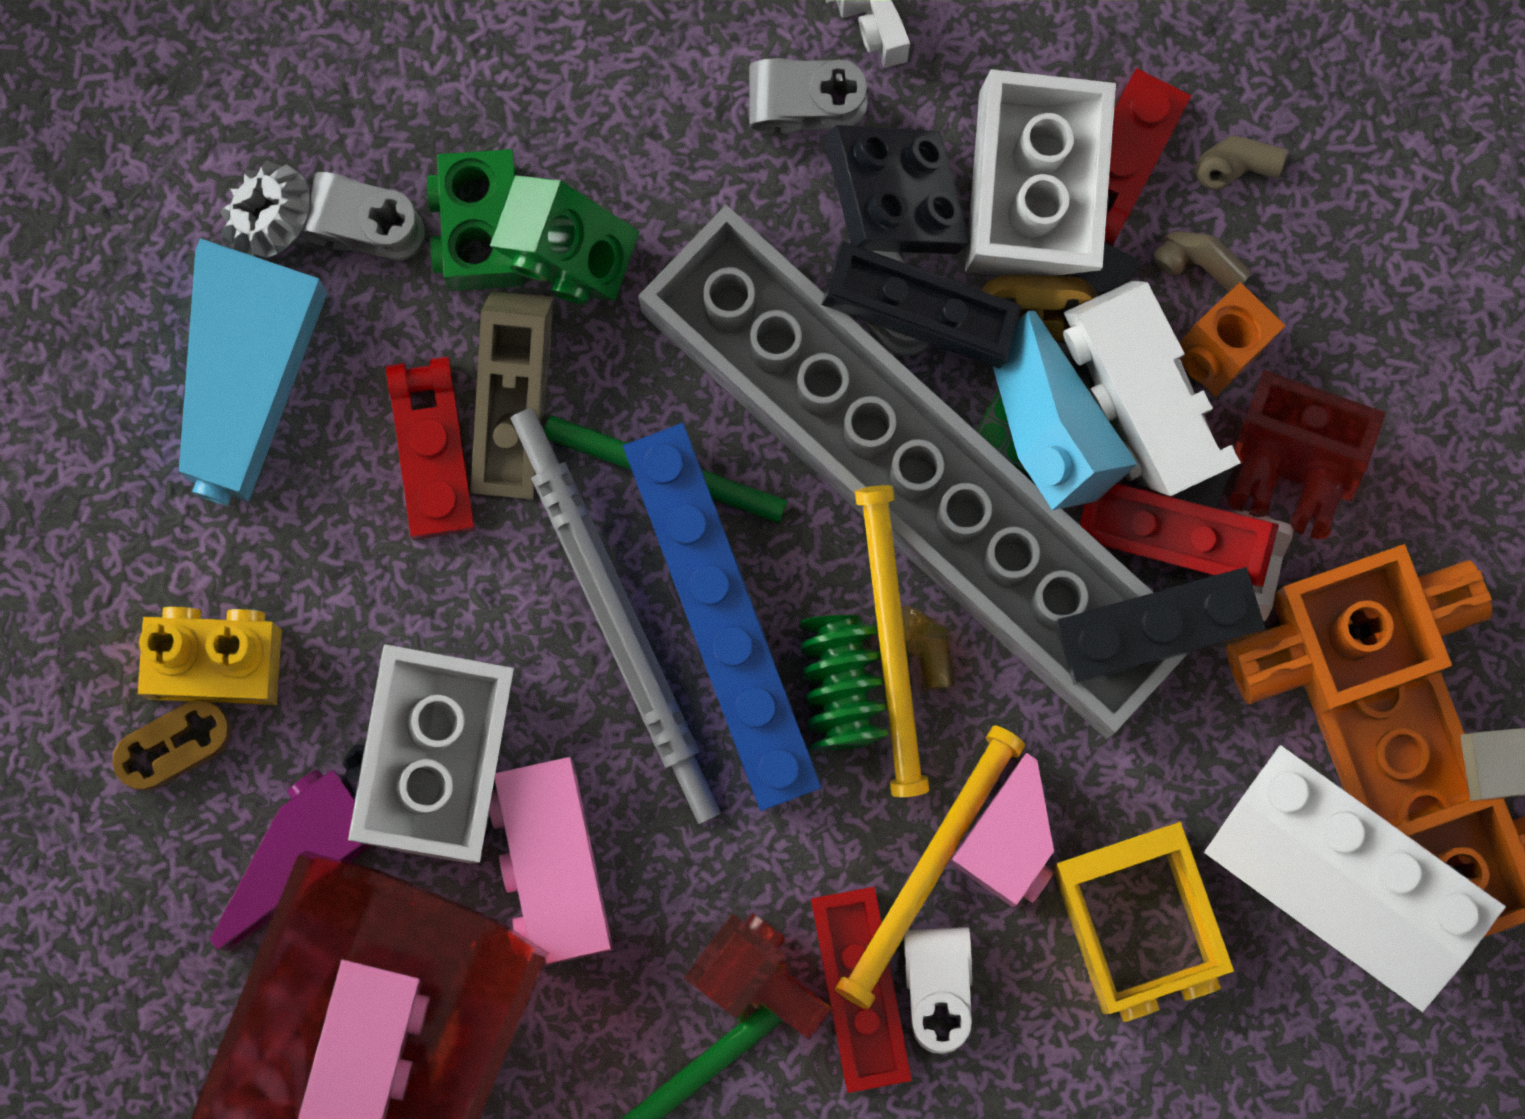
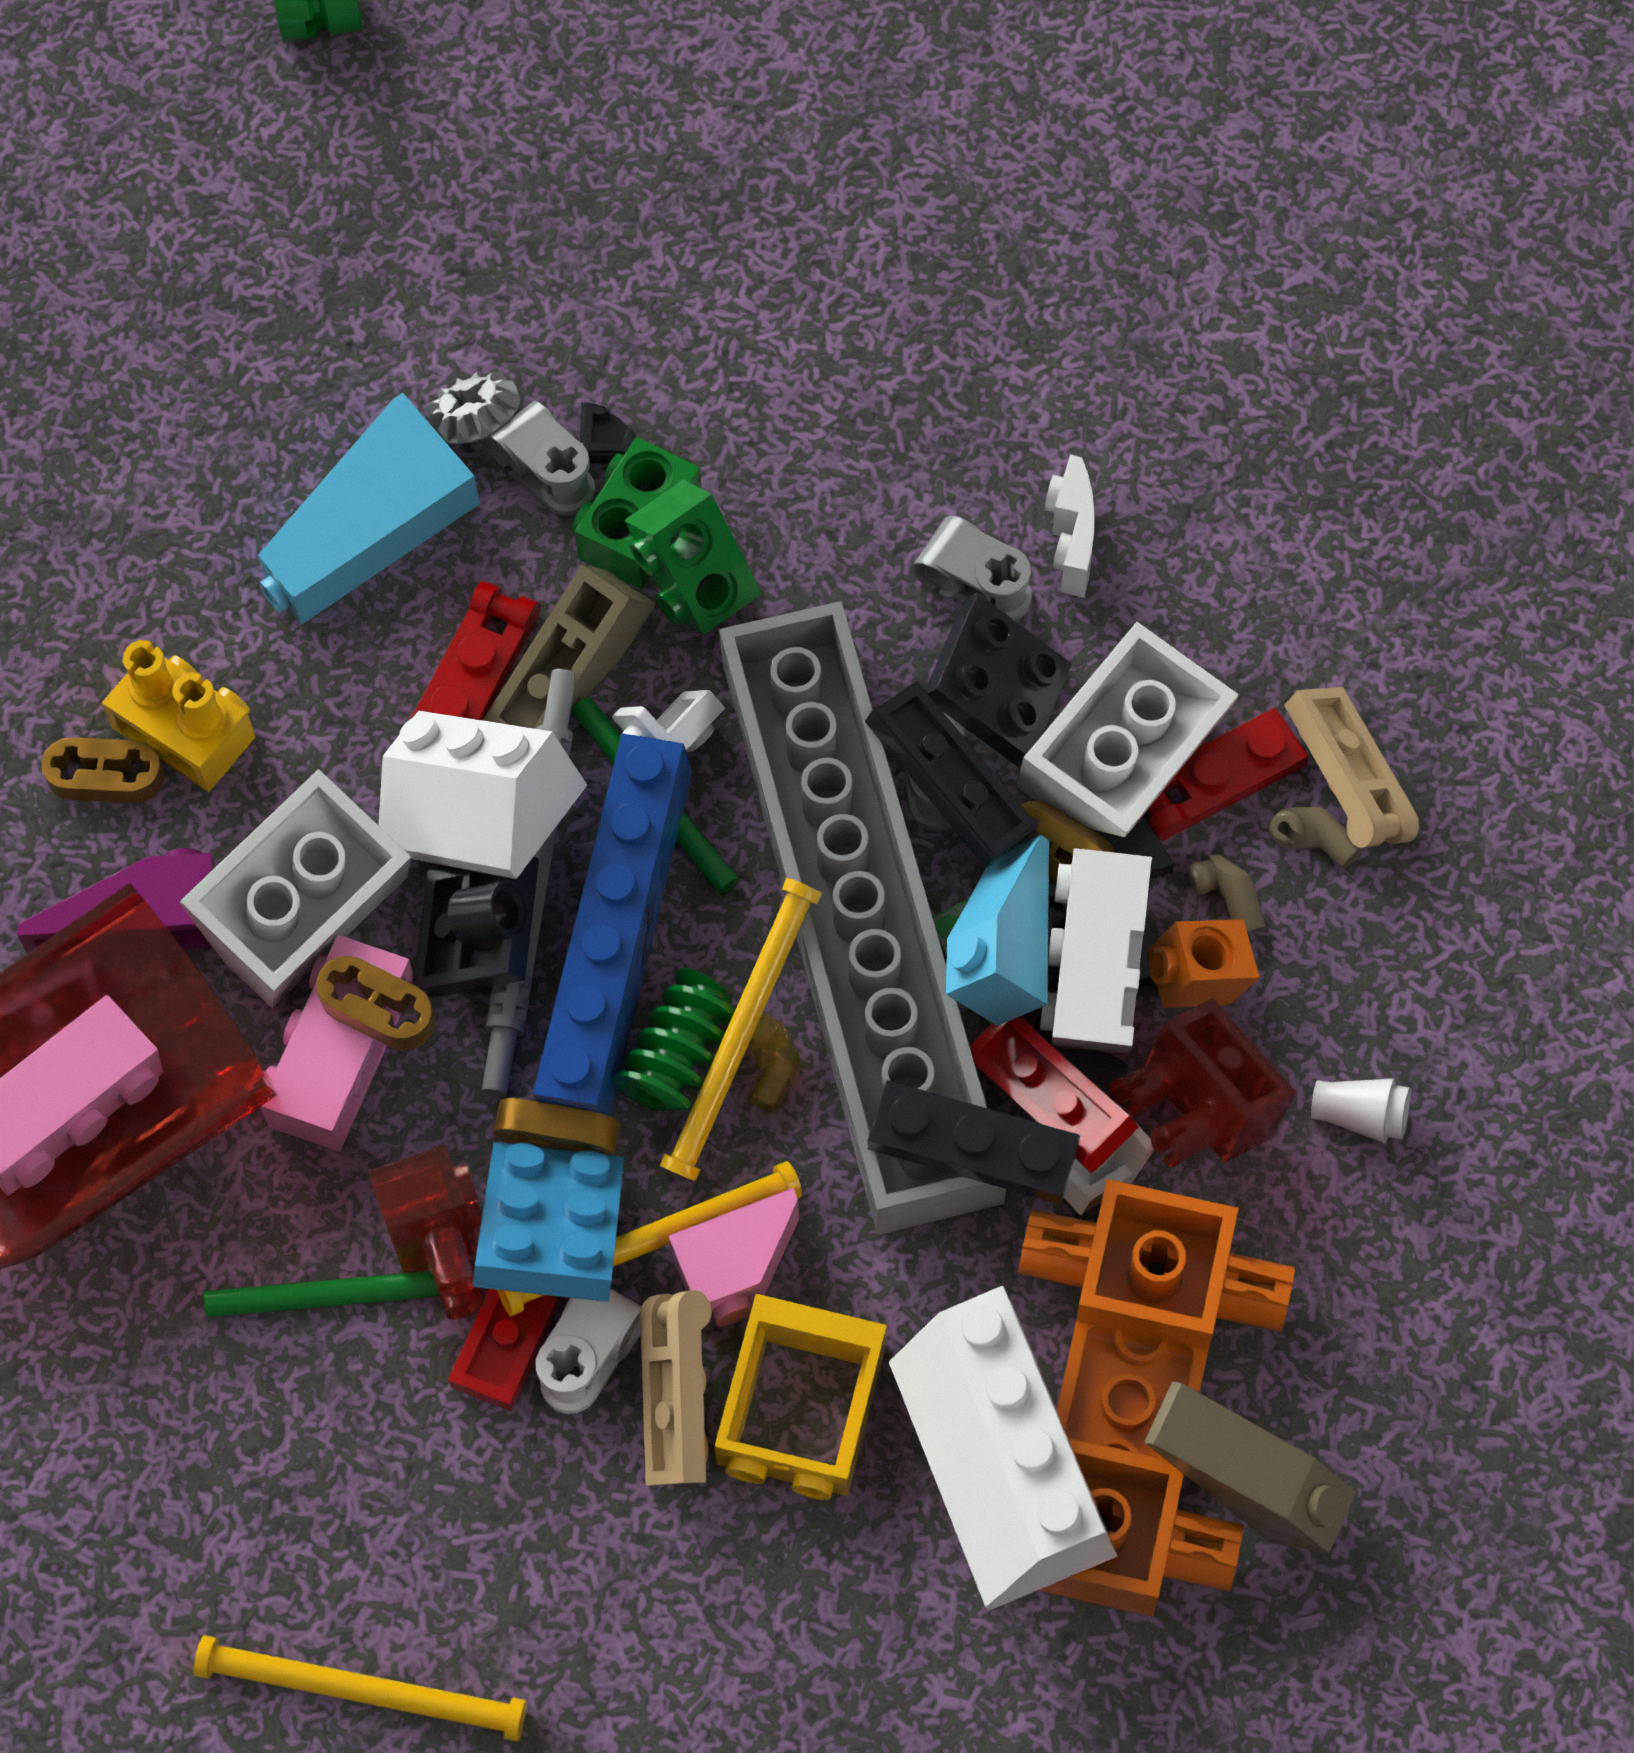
camera: 35 degrees right, 15 degrees down
(397, 162) = (603, 433): none -> black tile
(528, 578) = (475, 792): none -> white slope
(571, 800) = (369, 1015): none -> pearl gold beam
(602, 687) = (474, 930): none -> black plate
(647, 399) = (684, 721): none -> white bracket
(787, 819) = (555, 1126): none -> pearl gold beam
(849, 912) = (549, 1222): none -> dark azure plate
(1040, 983) = (674, 1387): none -> tan plate
(1237, 84) = (1353, 767): none -> tan plate
(1432, 380) = (1363, 1106): none -> white cone

